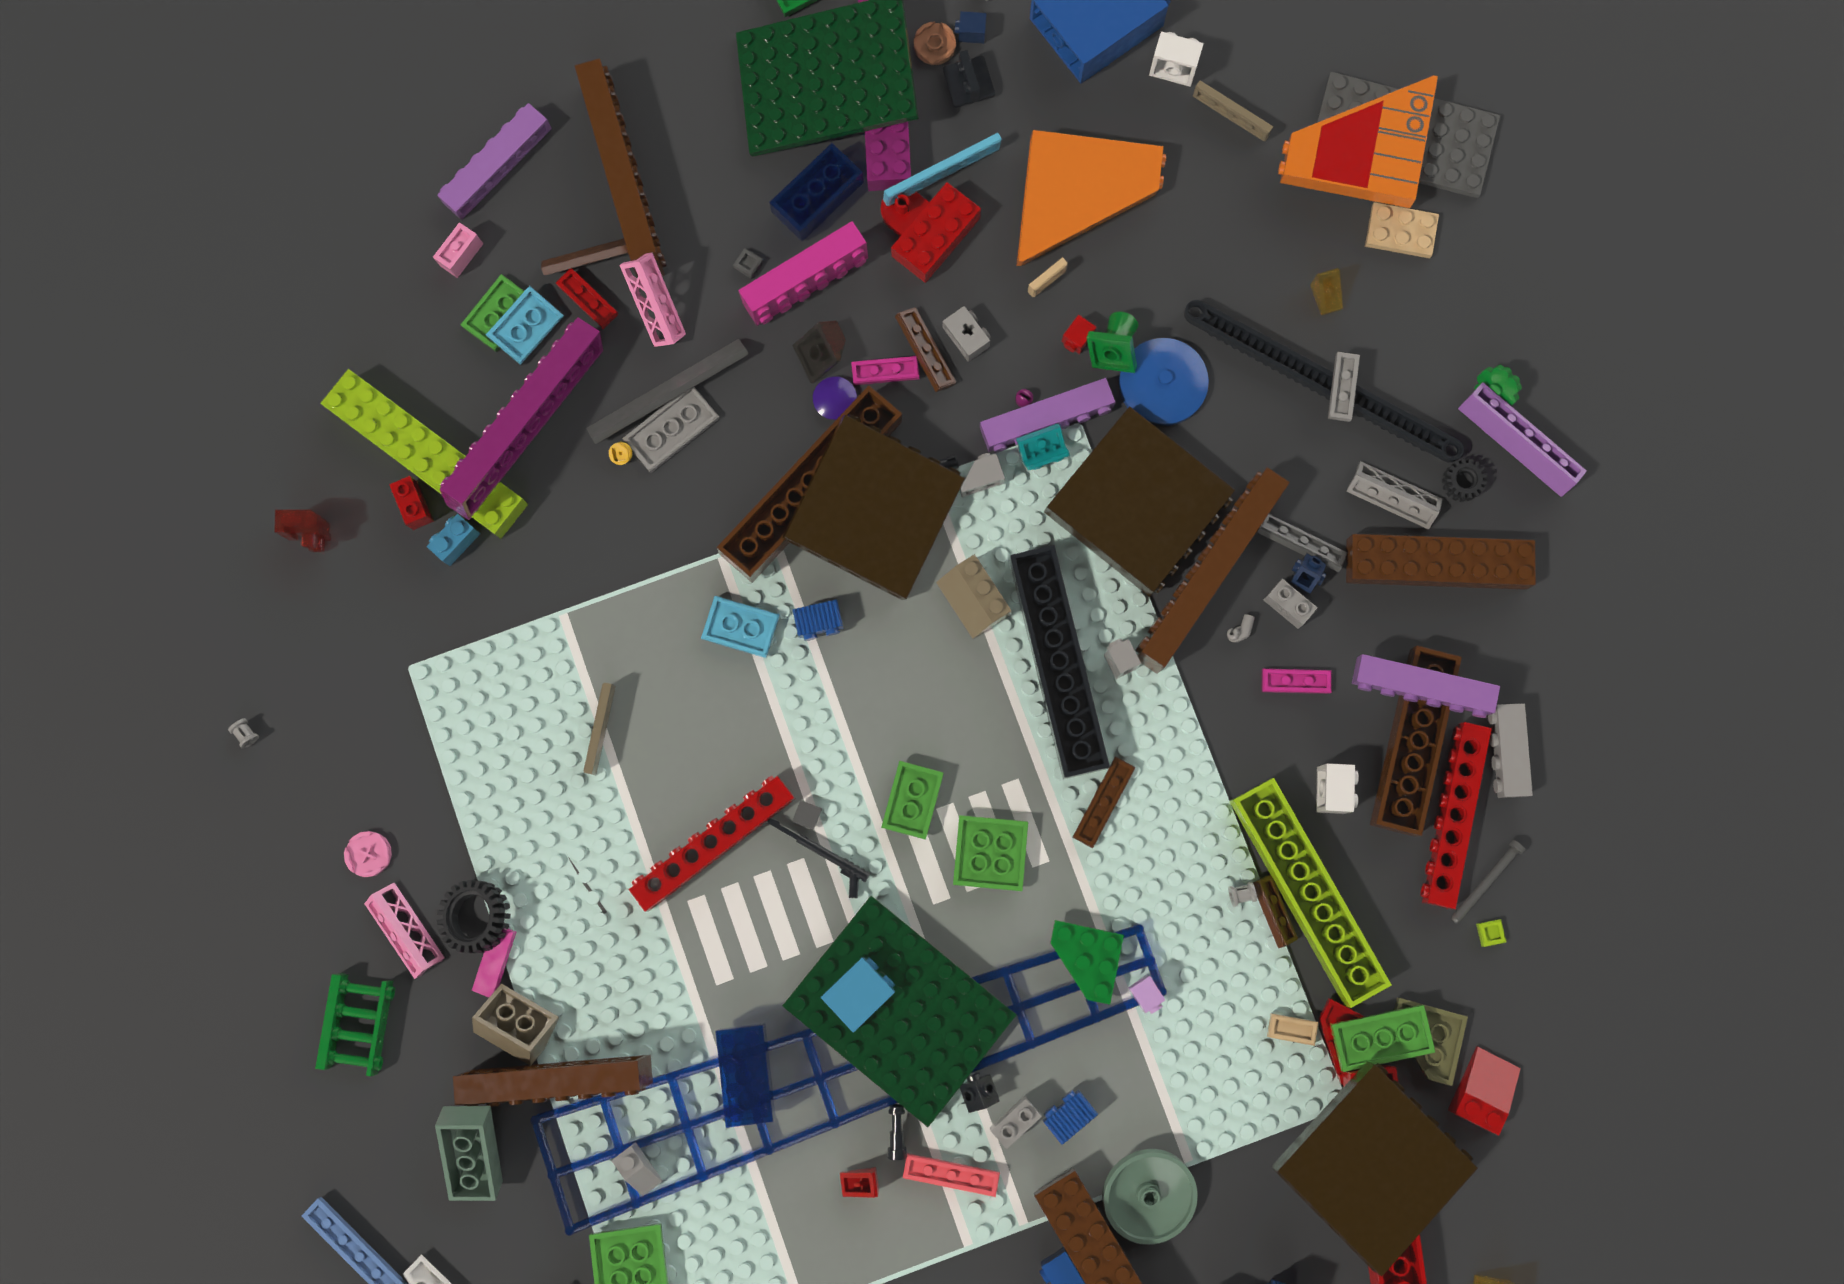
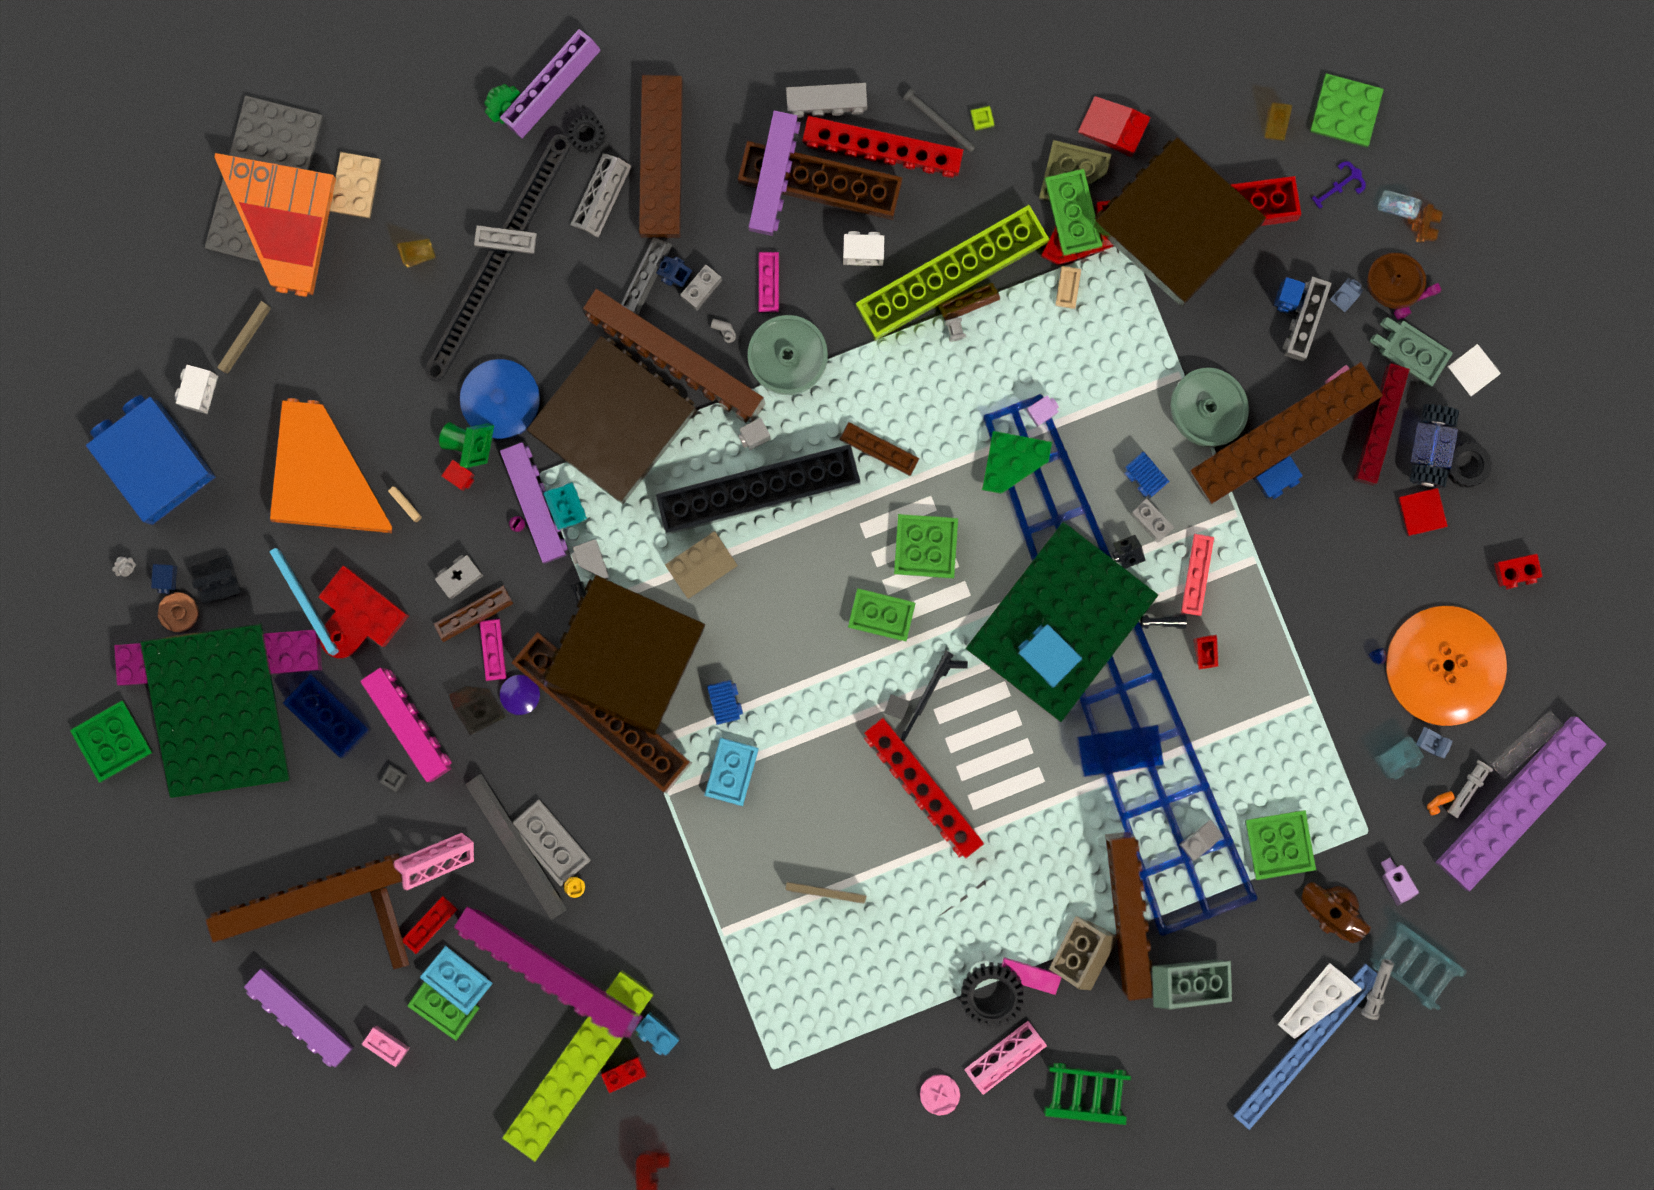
camera: 95 degrees left, 5 degrees up
(1213, 699) = (787, 355): none -> sand green dish

